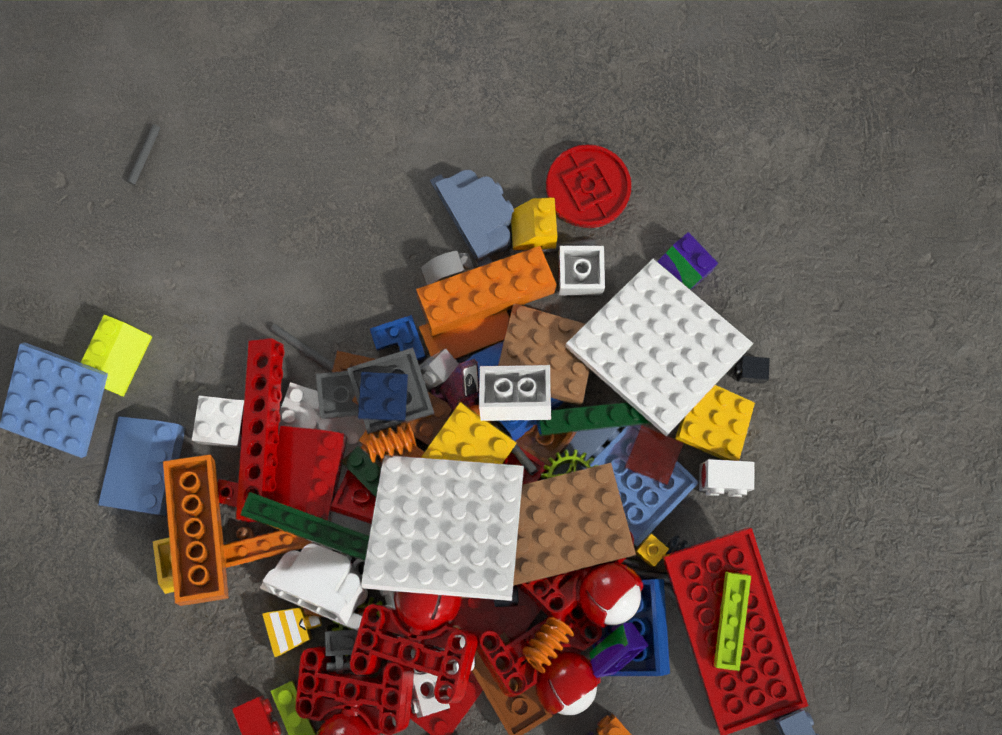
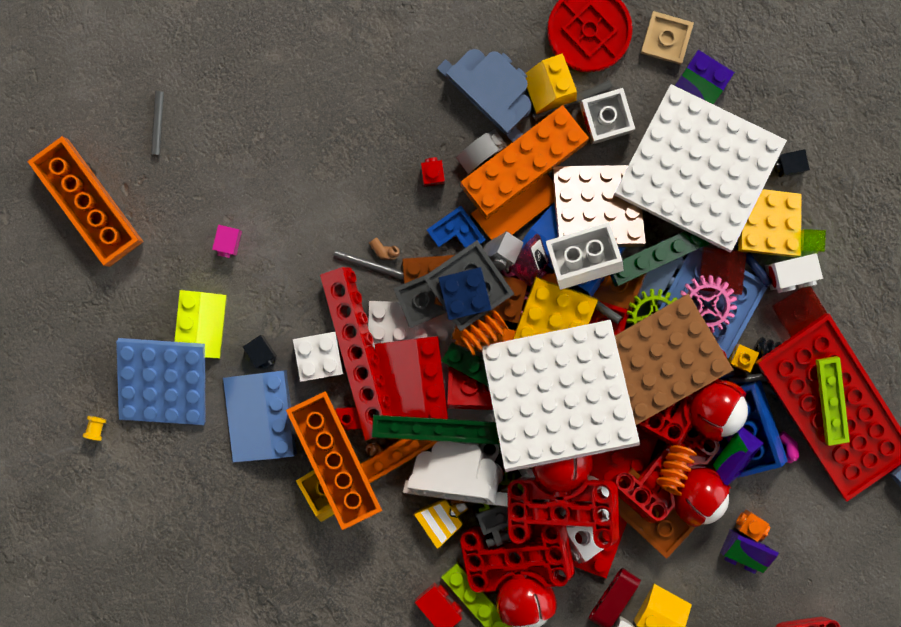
camera: 15 degrees left, 10 degrees up
(45, 205) = (85, 201): none -> orange brick
(164, 400) = (260, 352): none -> black brick
(169, 283) = (226, 241): none -> dark pink brick
(320, 339) = (384, 252): none -> medium nougat arm
(393, 275) = (432, 172): none -> red brick
(645, 472) = (714, 296): none -> bright pink gear
(661, 215) = (667, 37): none -> tan plate
(678, 660) = (791, 446): none -> dark pink arm
(689, 461) = (756, 268): none -> dark blue bar
(722, 517) = (799, 310): none -> clear red plate
(754, 451) = (813, 241): none -> clear neon green brick

